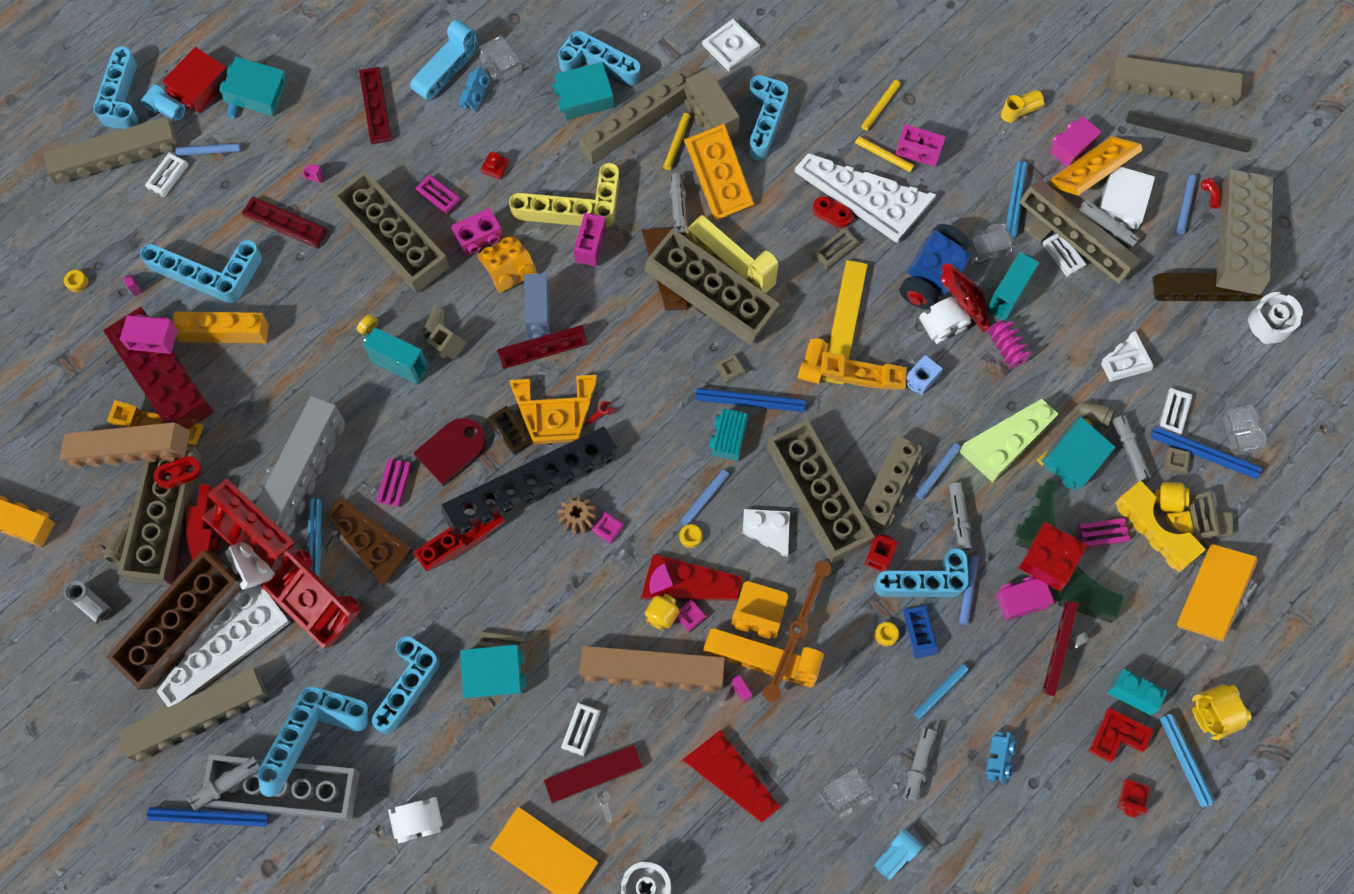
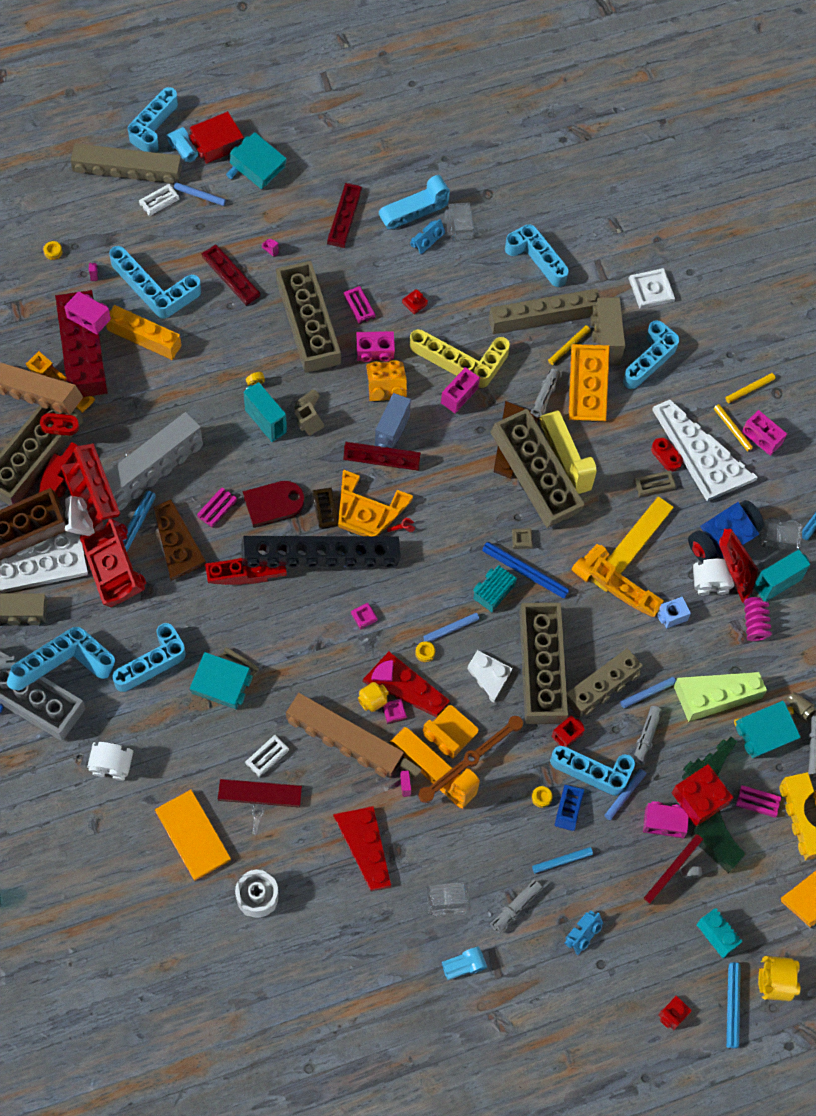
camera: 20 degrees right, 5 degrees down
(568, 517) = (351, 598): medium nougat gear -> none
(583, 91) = (513, 273): teal brick -> none
(735, 670) = (414, 771): none -> dark tan tile
(1118, 729) = (687, 954): red plate -> none

